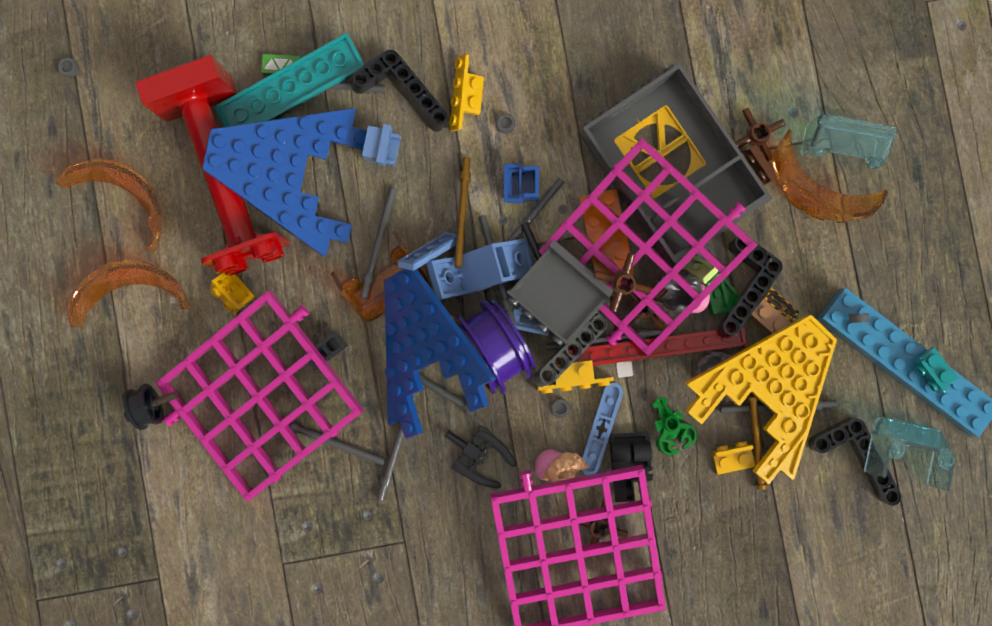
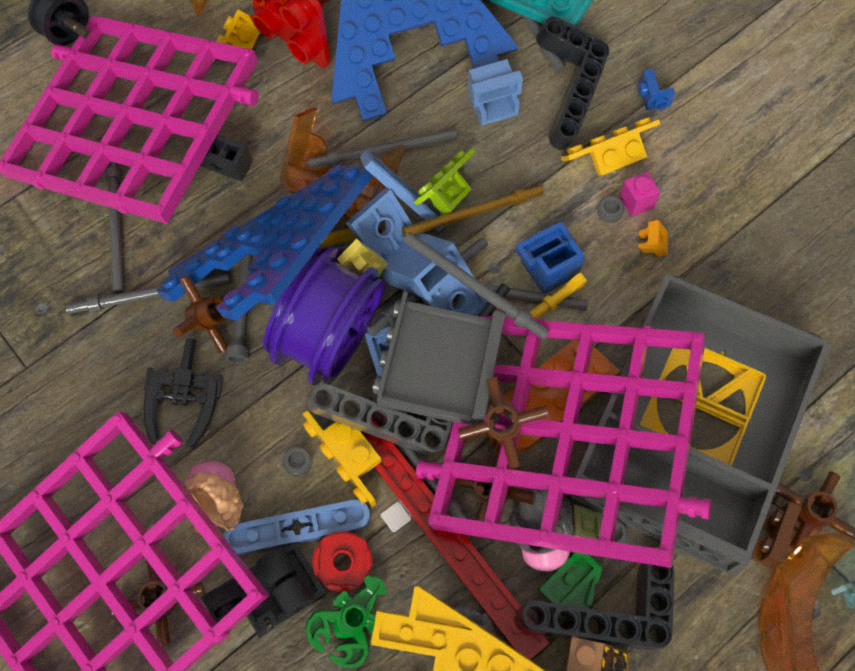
camera: 60 degrees right, 20 degrees down
(435, 216) = (447, 185): none -> lime bracket
(437, 43) = (650, 92): none -> blue bracket
(439, 417) = (201, 315): none -> reddish brown bar
(469, 304) = (360, 258): none -> light yellow plate
(509, 100) = (639, 194): none -> dark pink brick
(544, 109) = (657, 239): none -> light orange tile
(550, 203) = (549, 303): none -> yellow piece
(560, 231) = (521, 318): none -> dark grey bar
(625, 410) = (336, 578): none -> red tile

